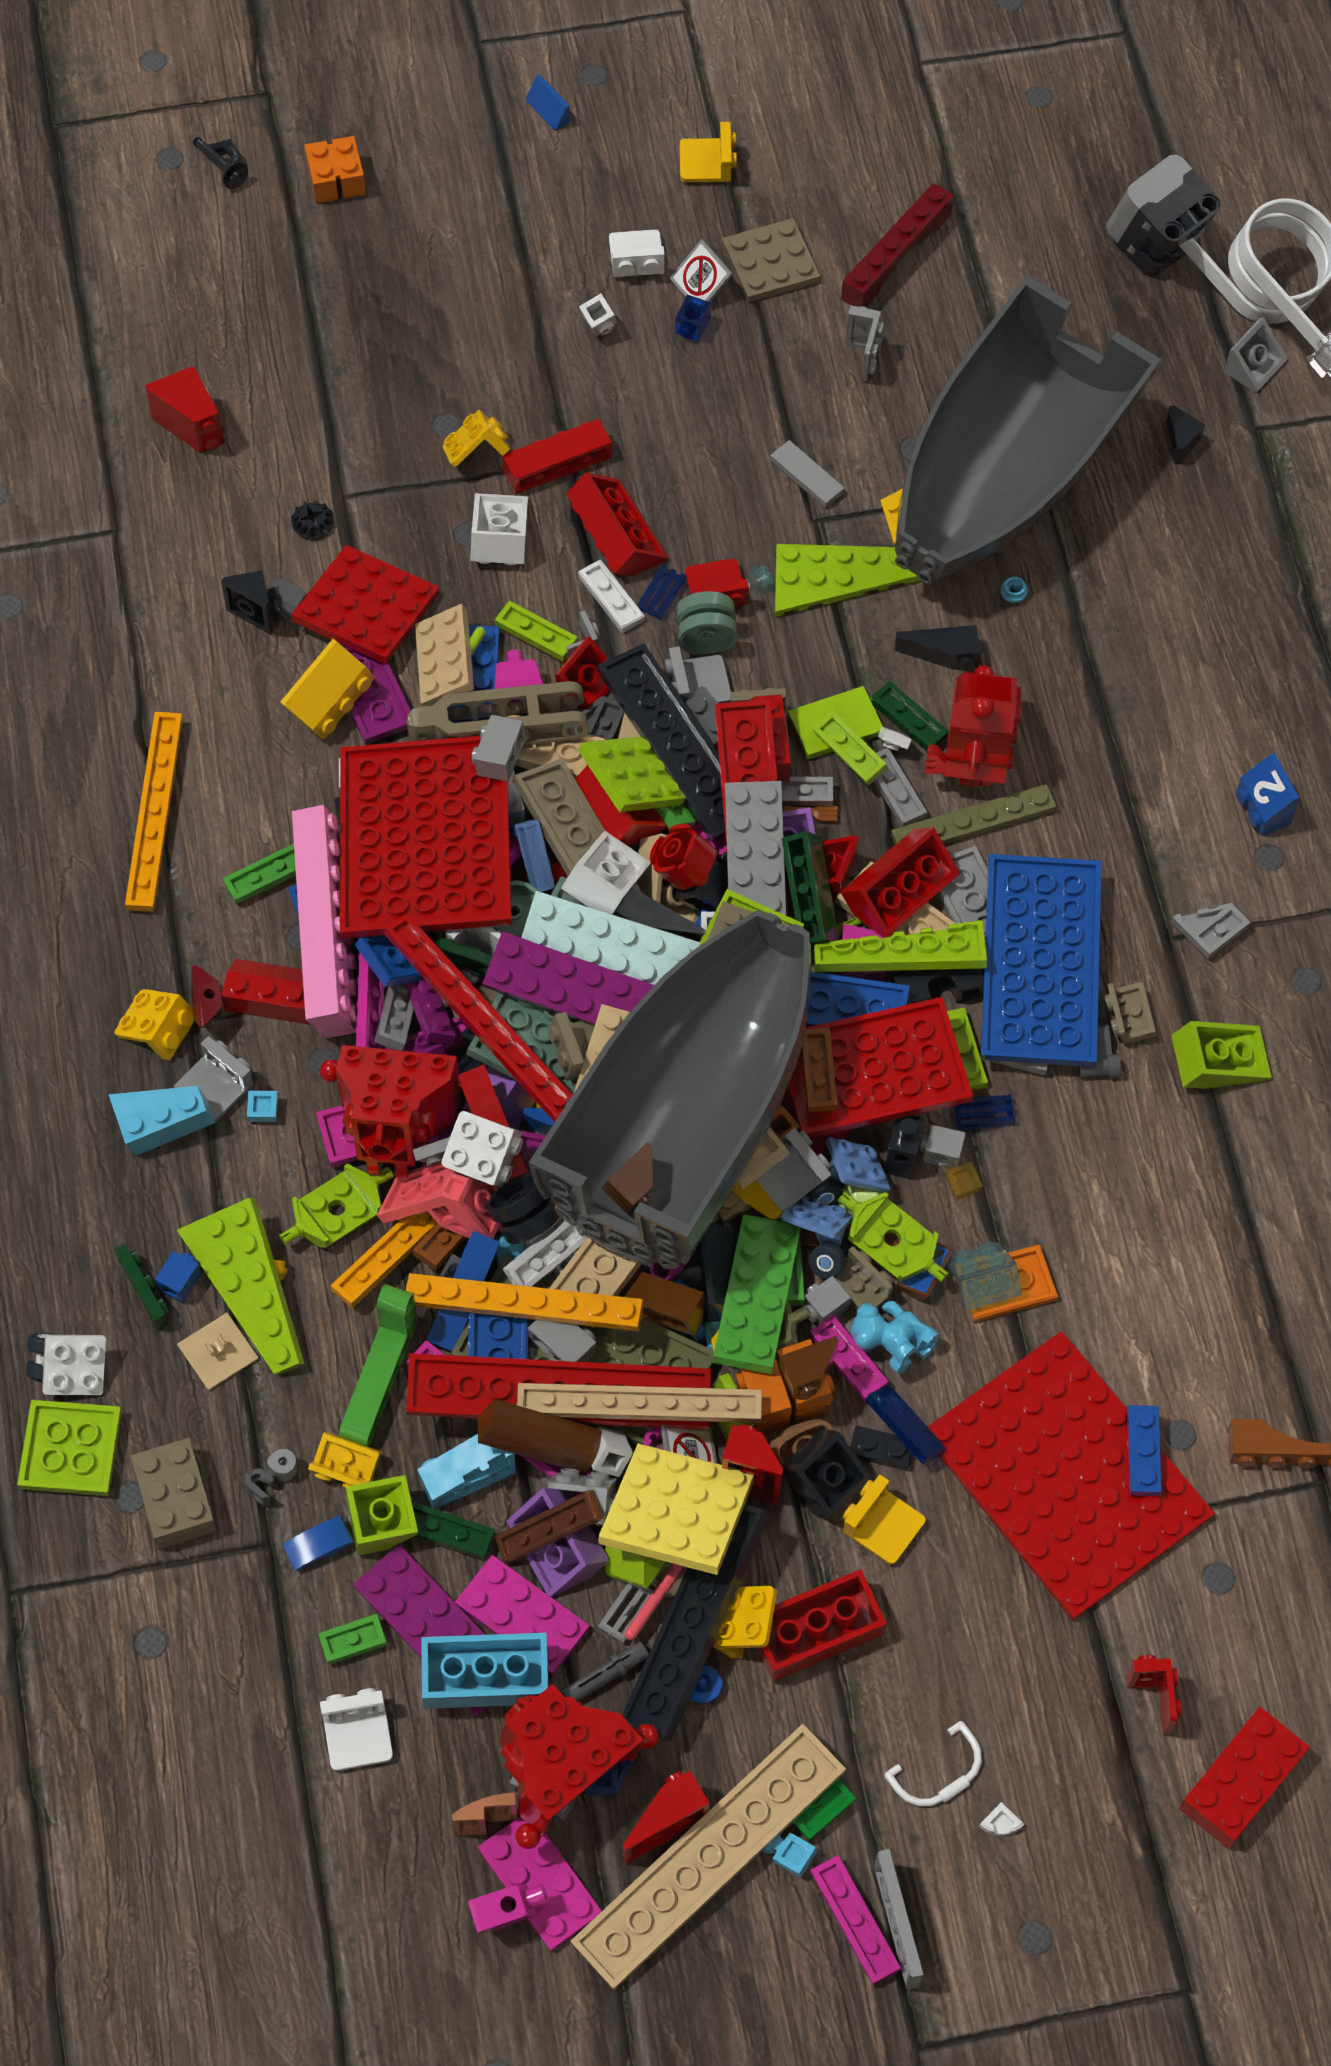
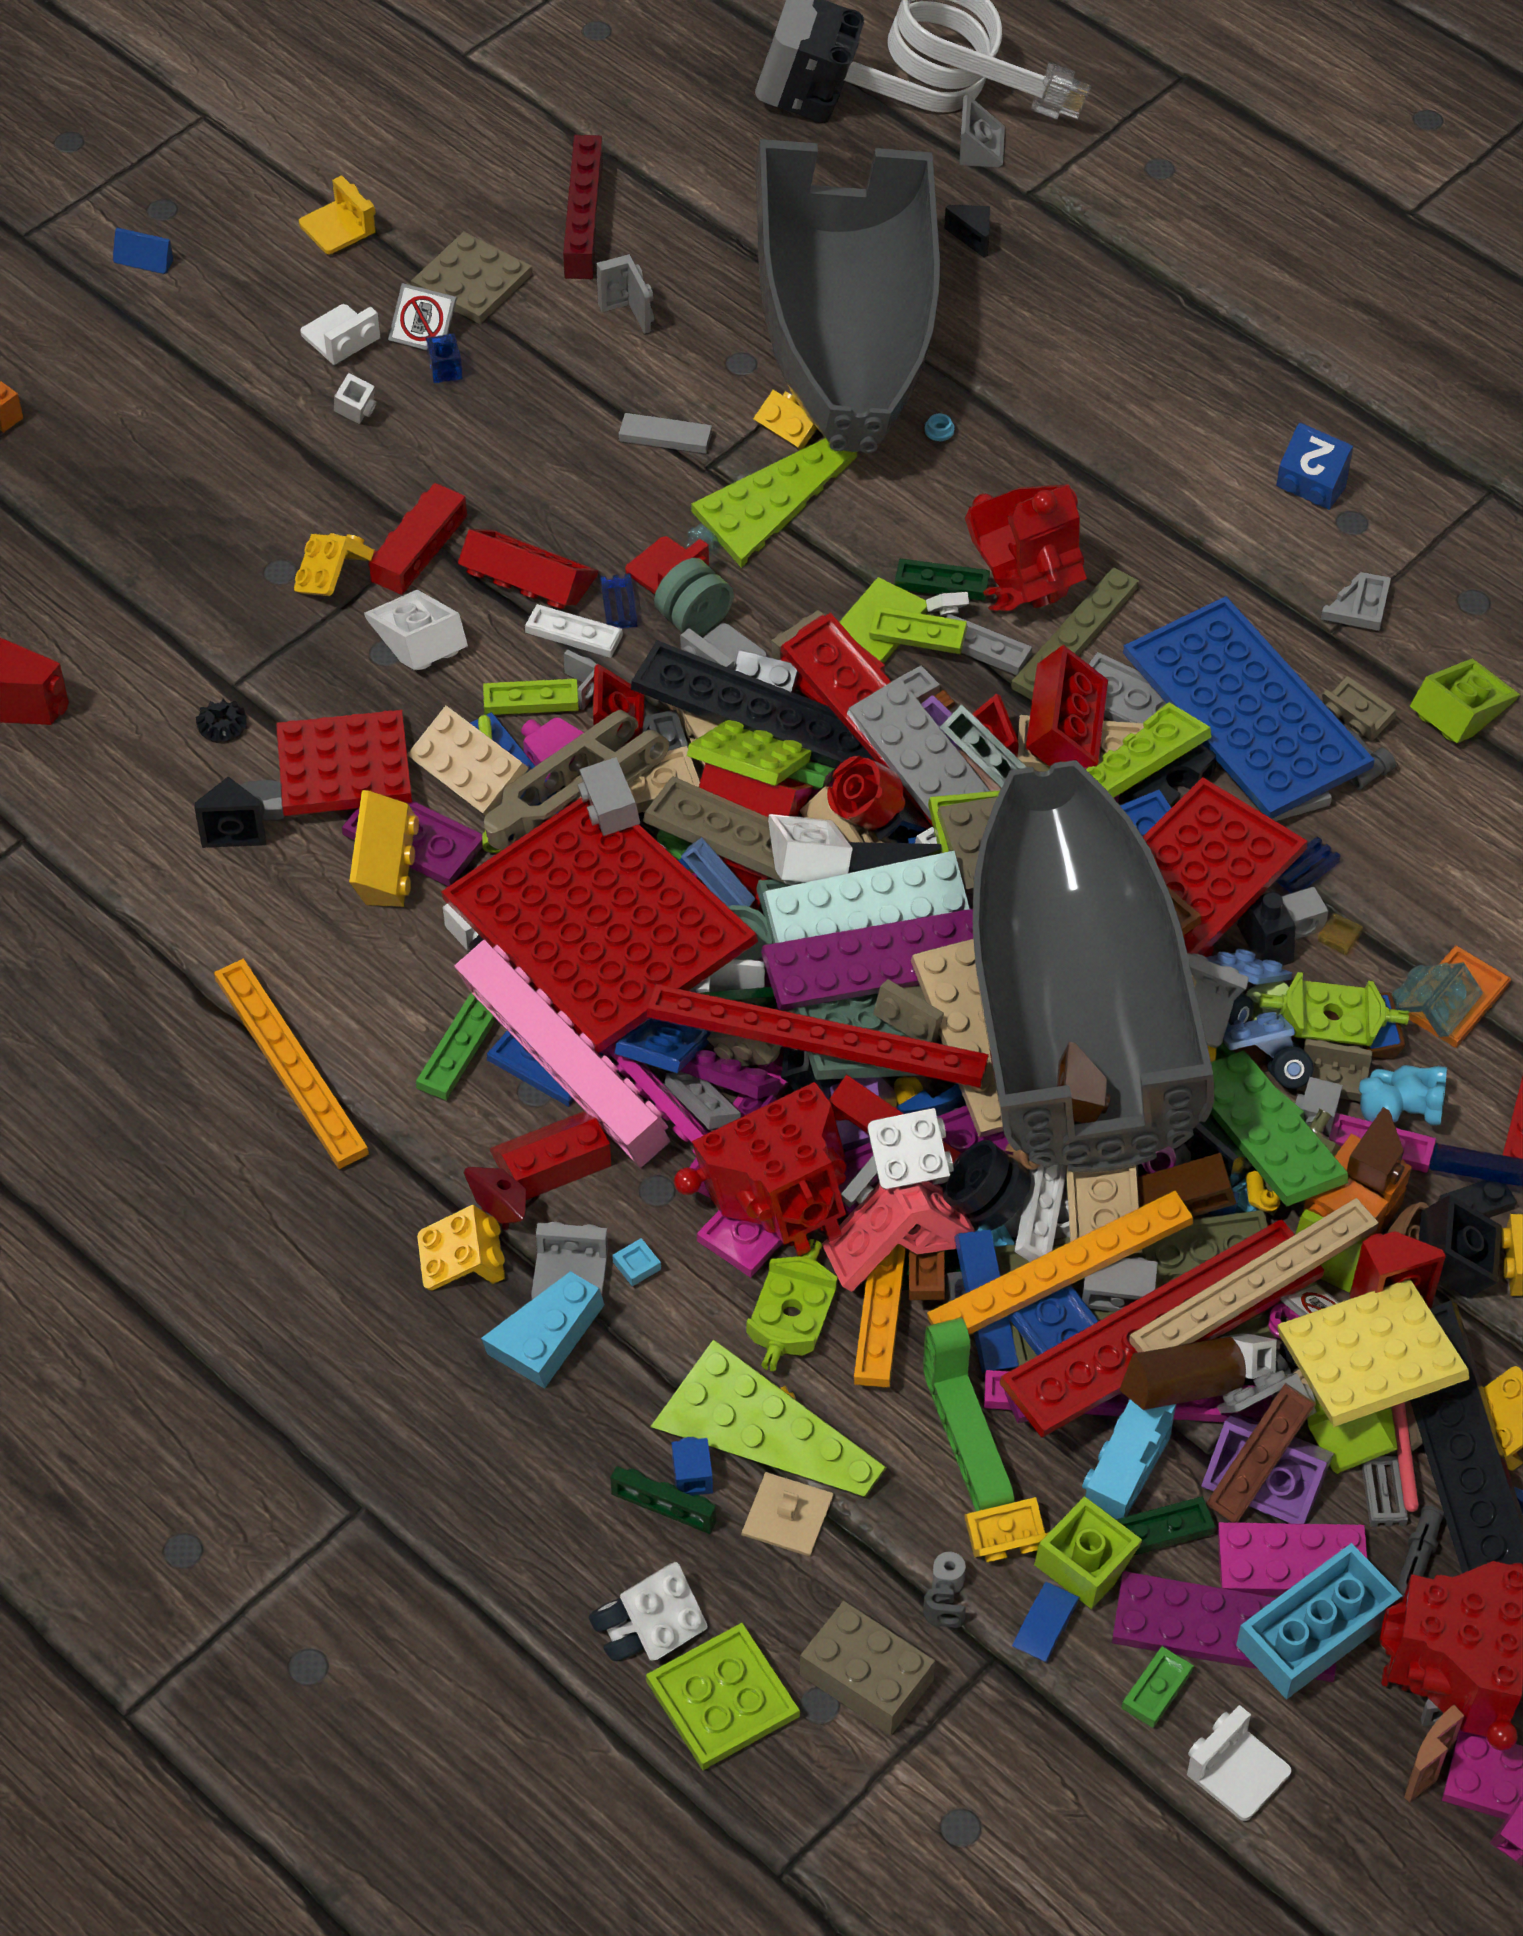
camera: 35 degrees left, 10 degrees down
(942, 646) = (920, 506): black slope -> none

